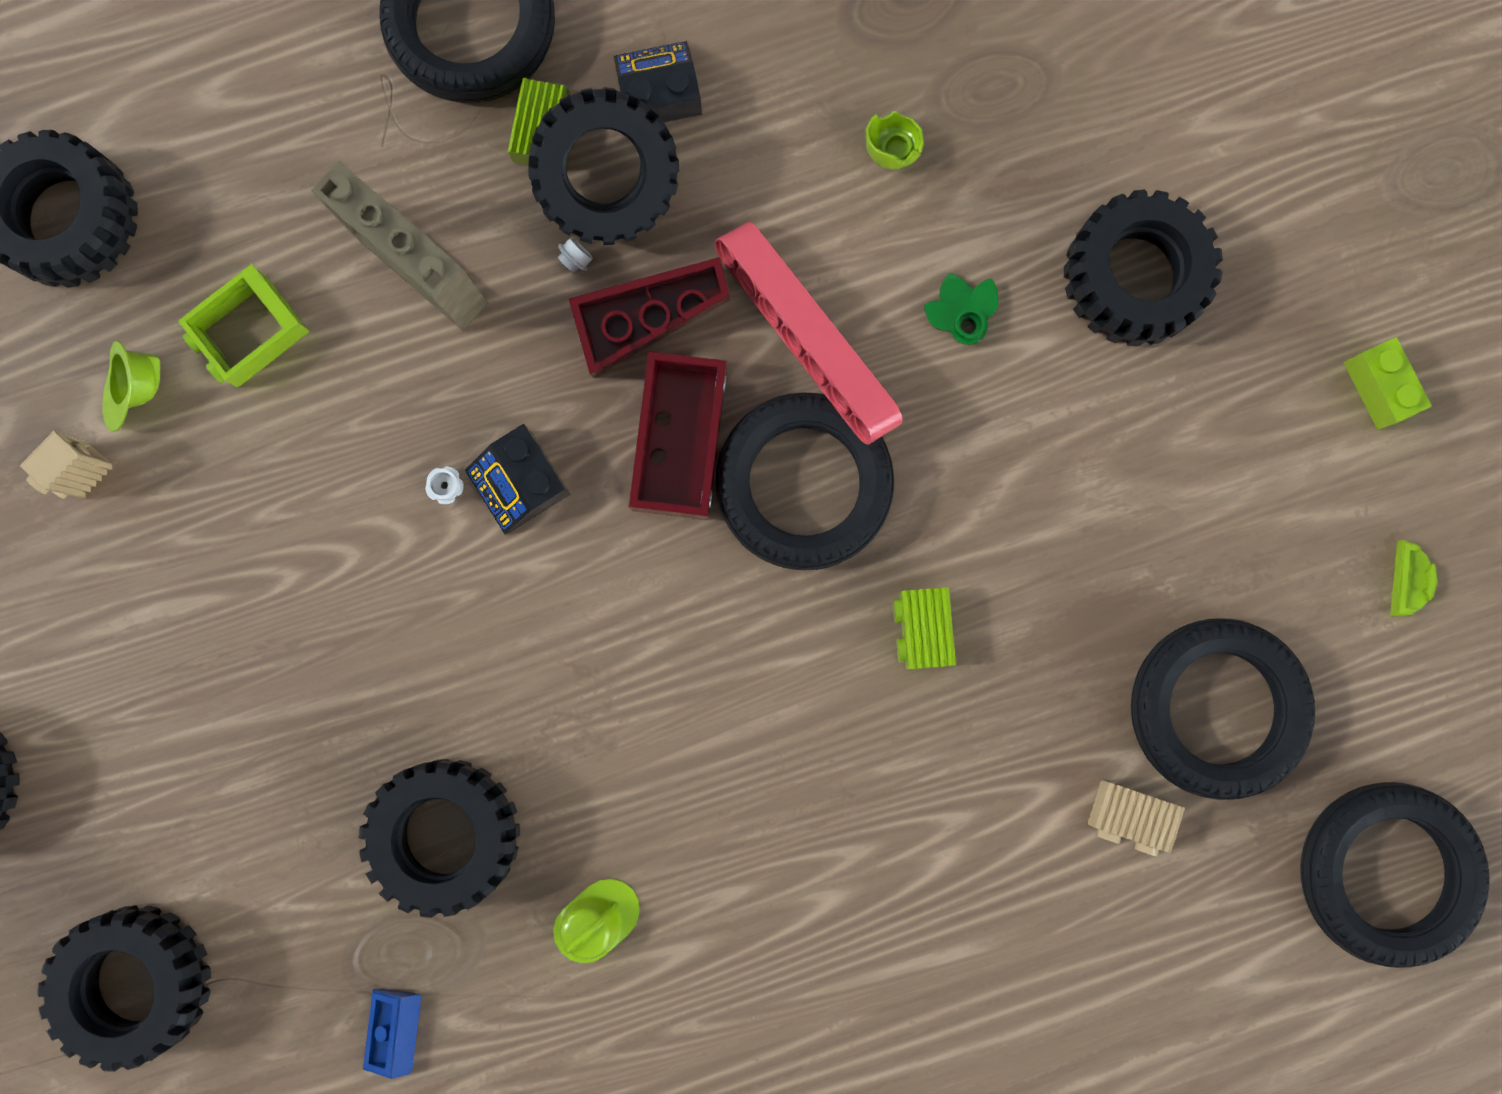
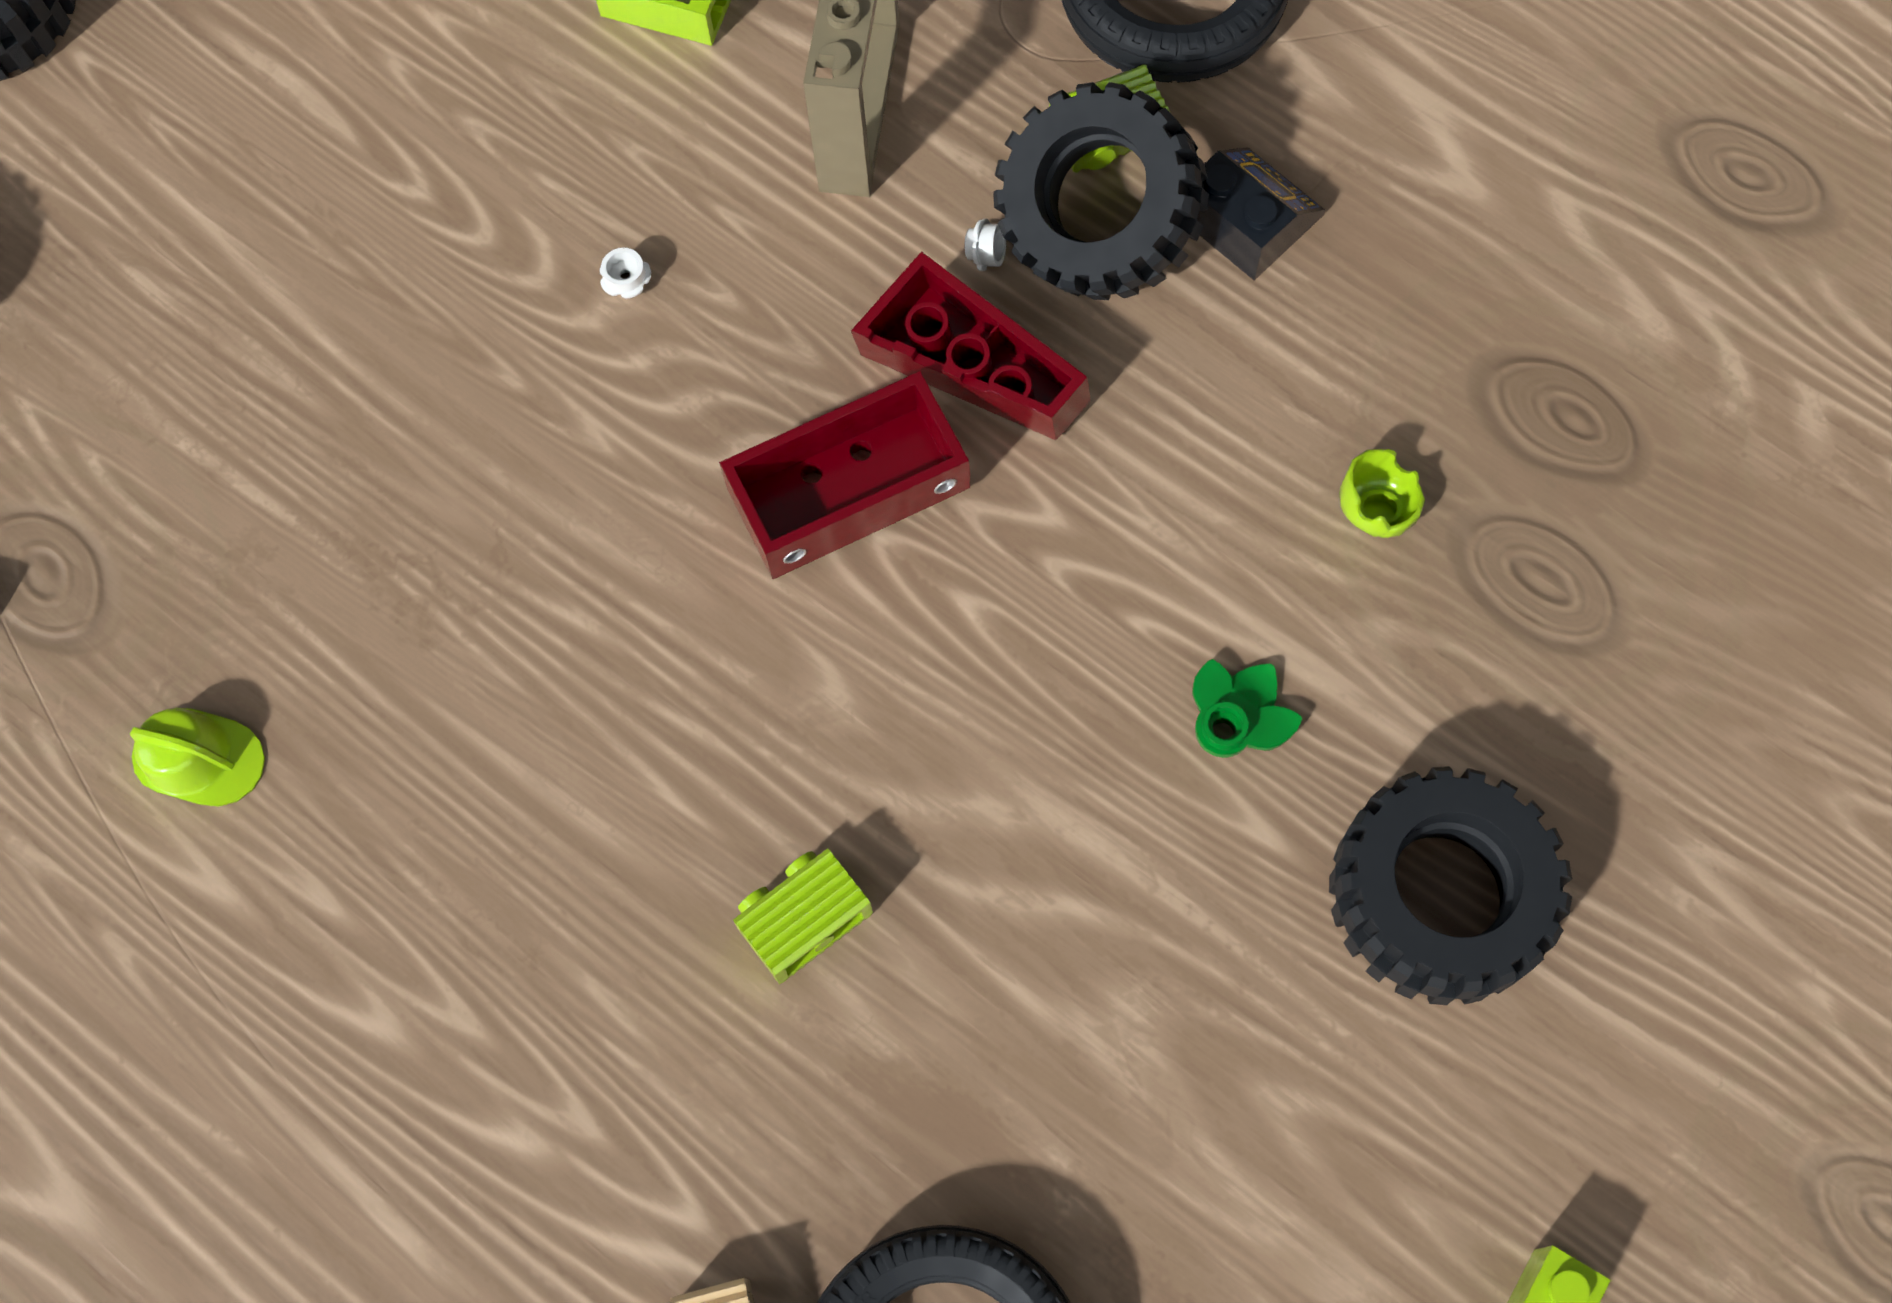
camera: 60 degrees right, 15 degrees down
(389, 849) = (156, 460): black tyre -> none
(516, 479) = (684, 342): black slope -> none
(765, 539) = (871, 560): black tyre -> none
(808, 333) = (1069, 540): coral beam -> none

